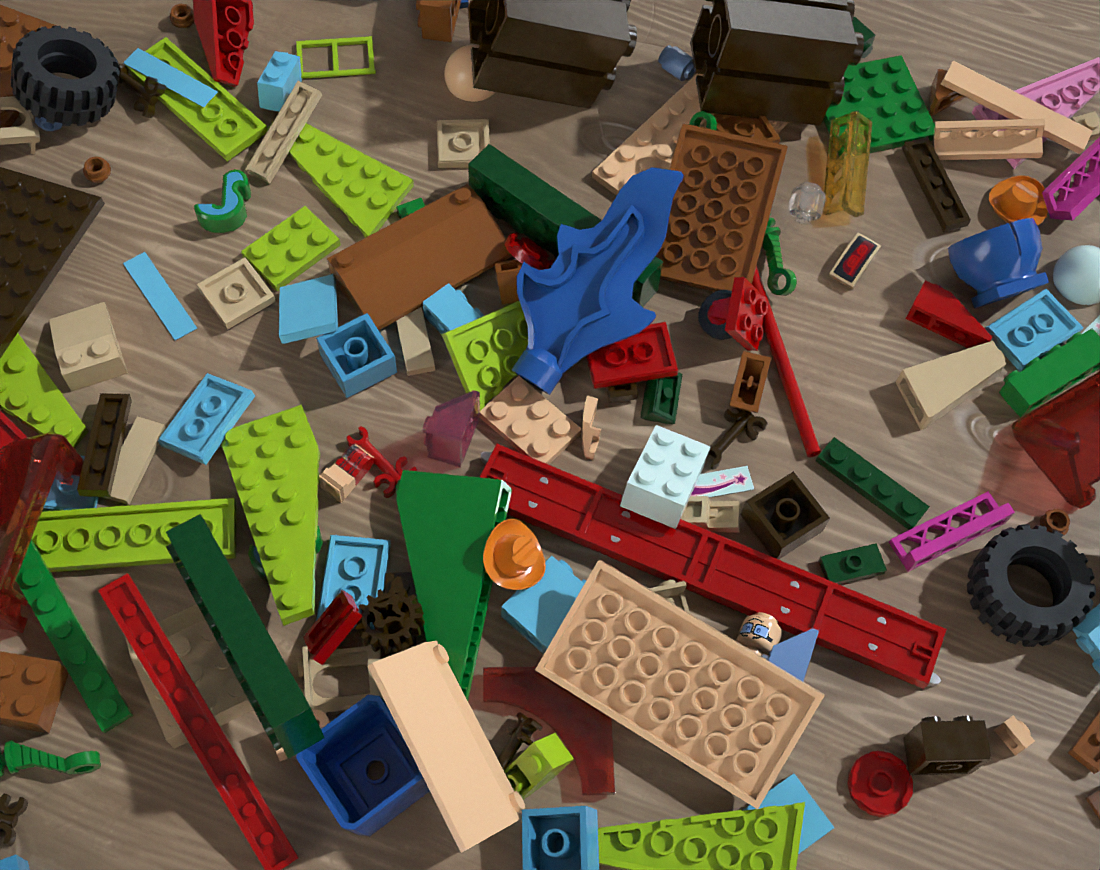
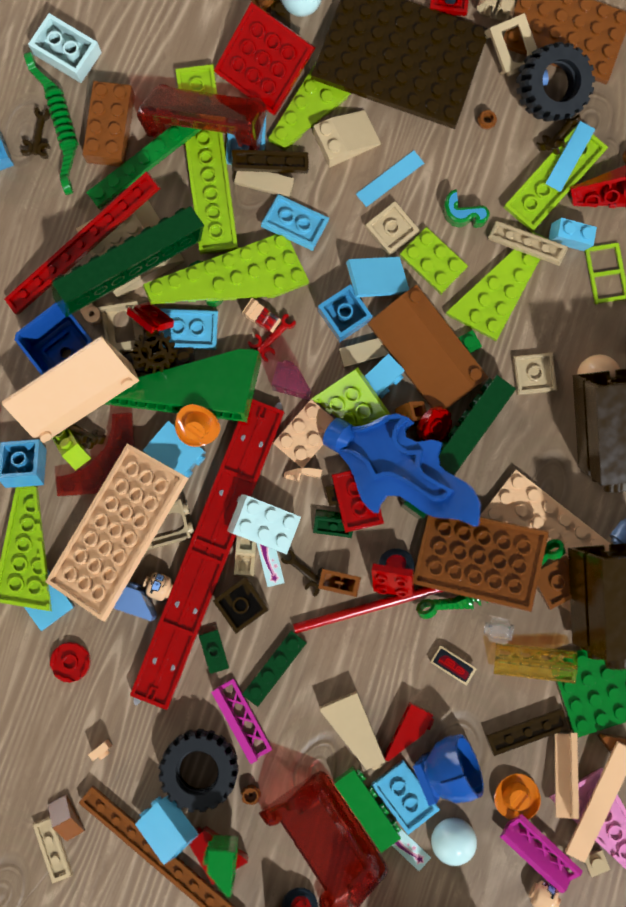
camera: 90 degrees right, 20 degrees up
(947, 746) = (87, 703): dark brown brick -> none

